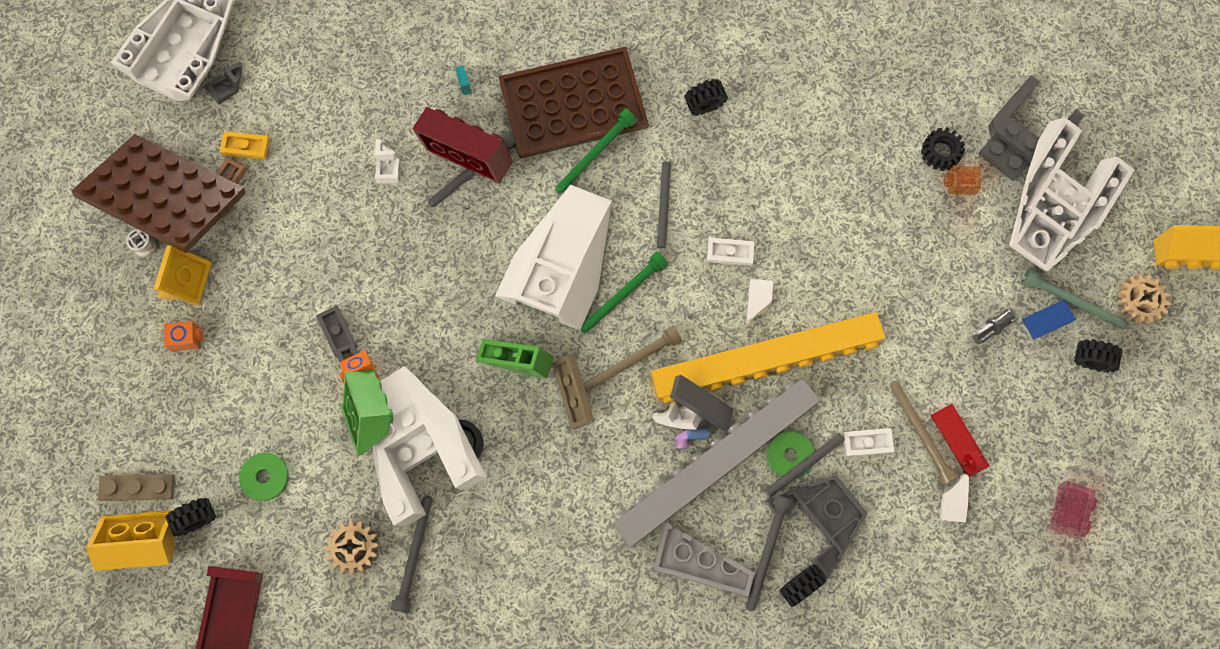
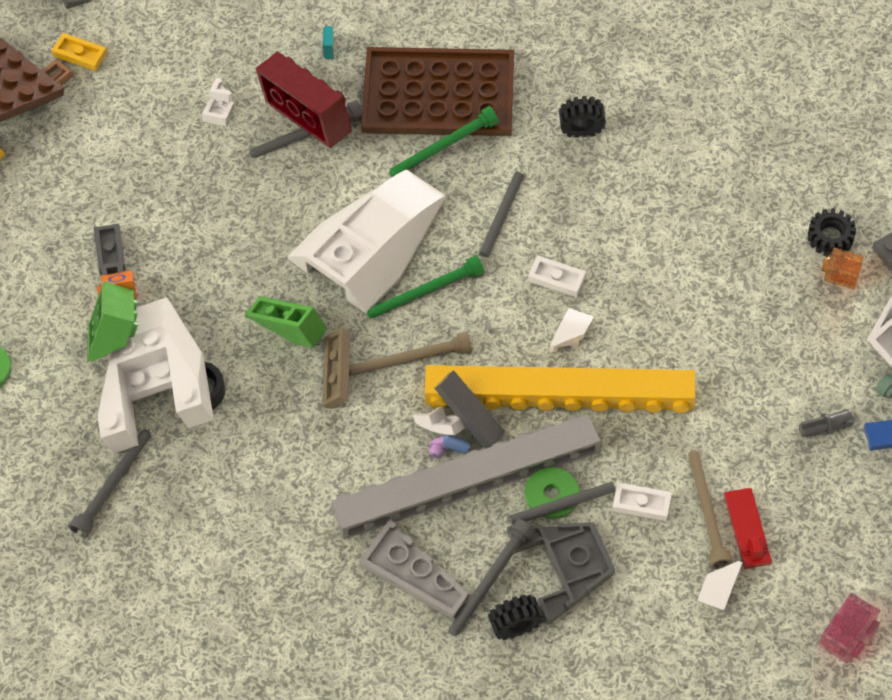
camera: 20 degrees right, 15 degrees down
(351, 537) = (52, 458): tan gear -> none

